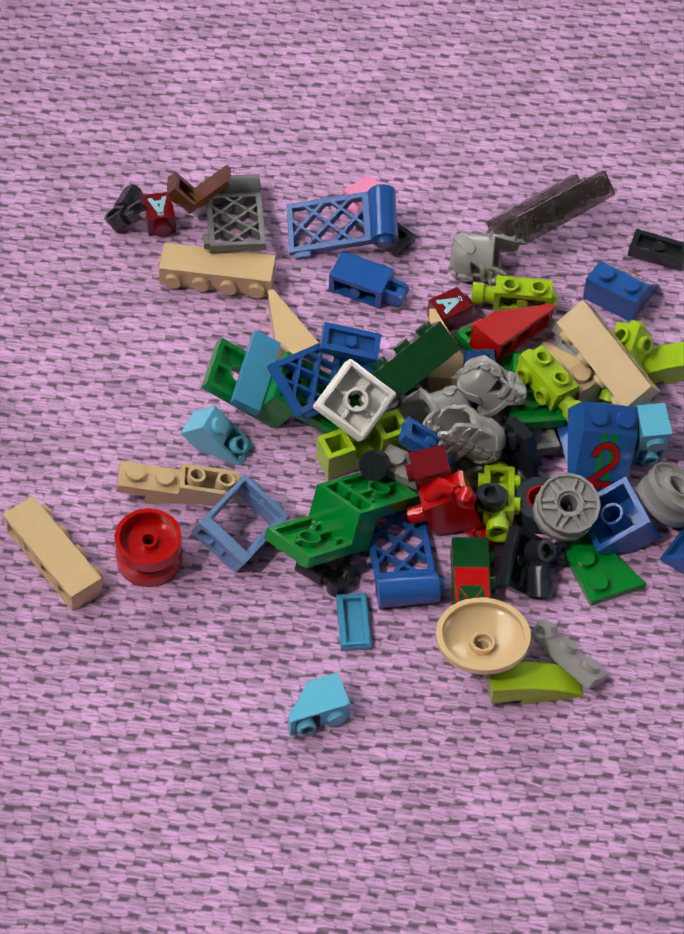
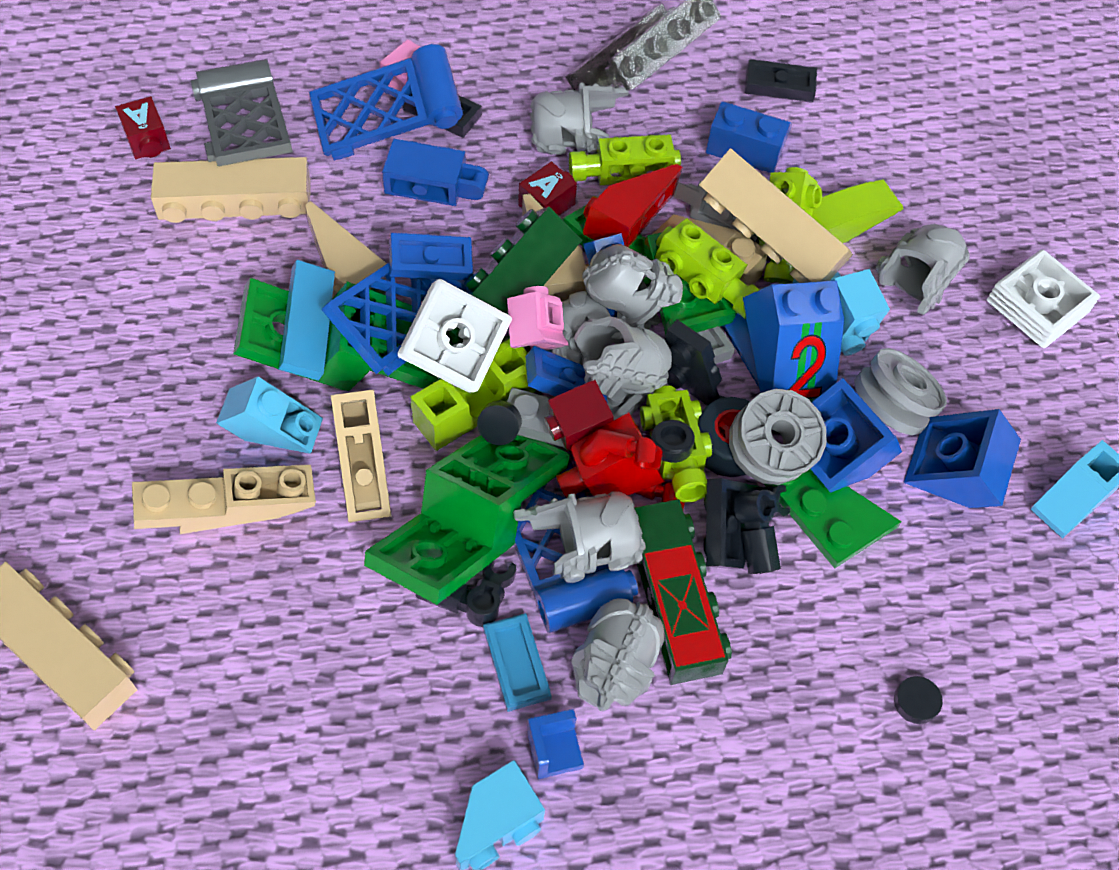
camera: 15 degrees left, 5 degrees up
(126, 209) = (97, 128): black bar -> none
(148, 547) = (193, 608): red wheel -> none
(192, 198) = (182, 101): reddish brown bracket -> none
(224, 545) = (299, 579): medium blue window -> none
(276, 464) = (361, 455): none -> tan slope
(366, 671) = (554, 744): none -> blue panel
(414, 398) = (536, 319): none -> bright pink window
(415, 624) = (618, 654): none -> light grey helmet
(423, 545) = (592, 532): none -> light grey helmet
(483, 636) = (726, 640): tan dish -> none
(532, 684) = (793, 709): lime slope -> none
(567, 655) = (831, 654): light grey hinge -> none
(620, 696) = (918, 700): none -> black tile

